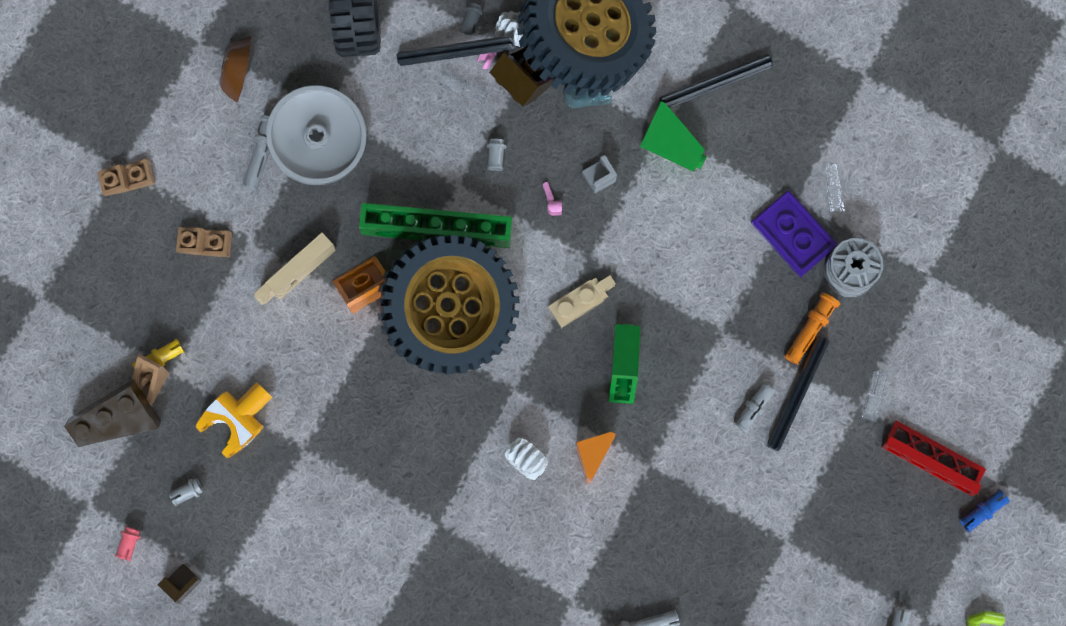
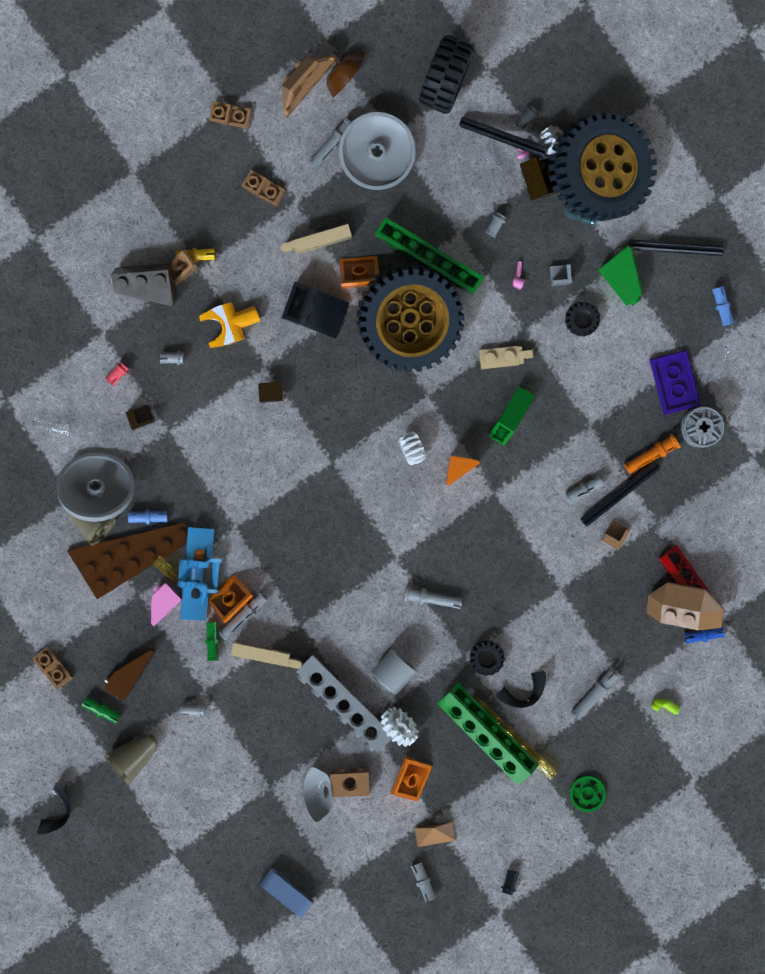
camera: 30 degrees right, 10 degrees up
(193, 96) = (304, 79): none -> medium nougat wedge
(324, 475) = (270, 392): none -> dark brown panel
(330, 352) = (315, 310): none -> black slope
(656, 199) = (582, 307): none -> black tyre
(803, 120) = (723, 306): none -> medium blue pin
(818, 444) = (615, 535): none -> medium nougat panel
(946, 487) = (685, 607): none -> medium nougat wedge

